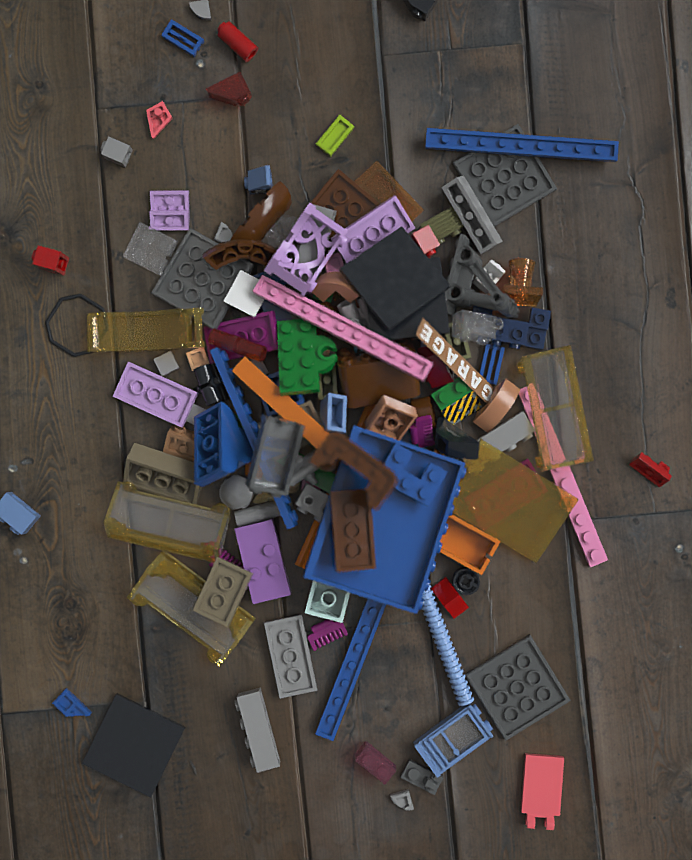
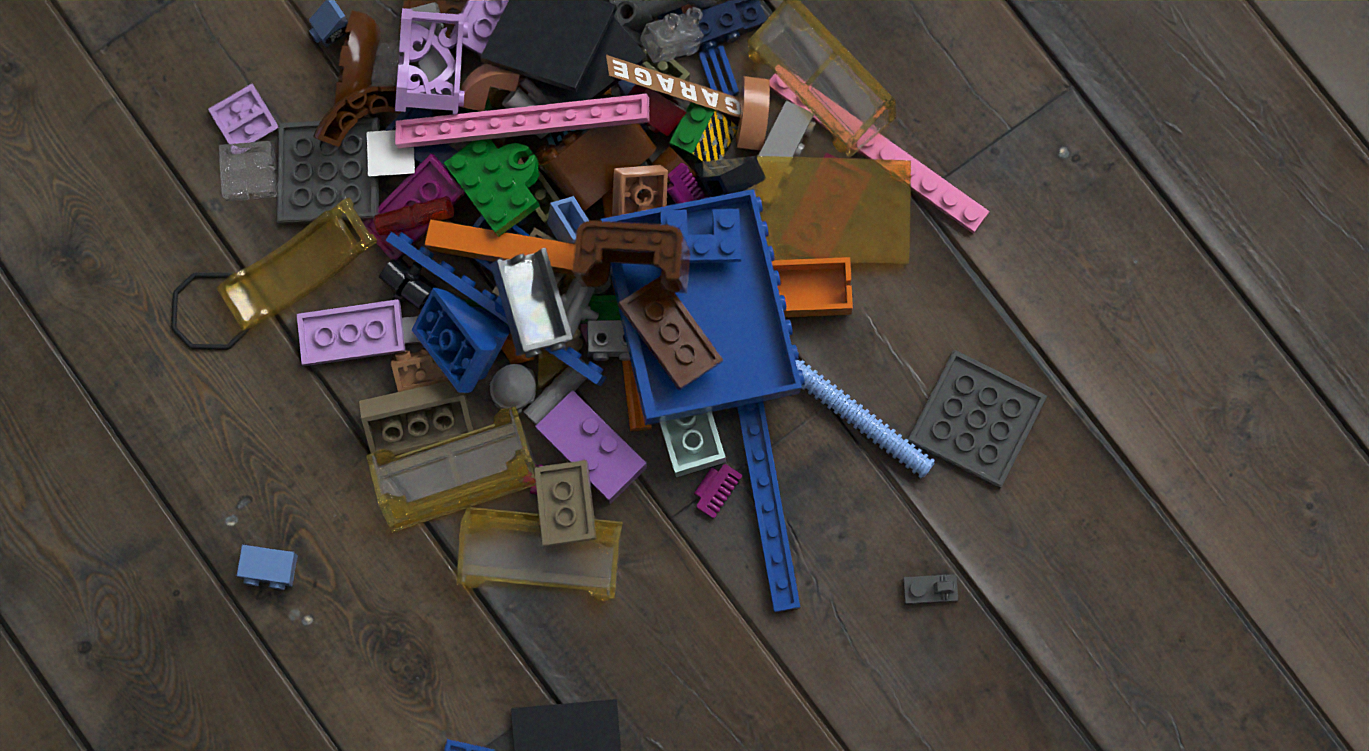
camera: 25 degrees left, 10 degrees down
(50, 260) = (138, 250): red brick -> none
(116, 151) = (143, 88): light grey brick -> none
(158, 118) = (169, 24): coral piece -> none
(166, 363) = (342, 291): light grey tile -> none
(197, 358) = (374, 264): light nougat tile -> none
(223, 234) = (320, 107): light grey tile -> none
(258, 730) = (704, 645): light grey brick -> none
(290, 656) = (690, 539): light grey plate -> none
(334, 263) = (469, 63): bright pink tile -> none
(375, 762) = (864, 601): clear pink brick -> none
(403, 799) = (925, 629): light grey tile -> none
(449, 597) = (835, 362): red slope -> none
(453, 738) = (939, 518): medium blue door -> none
(465, 581) = (841, 331): black wheel -> none
(542, 788) = (1078, 517): coral tile -> none
(651, 470) = (971, 82): red hinge -> none

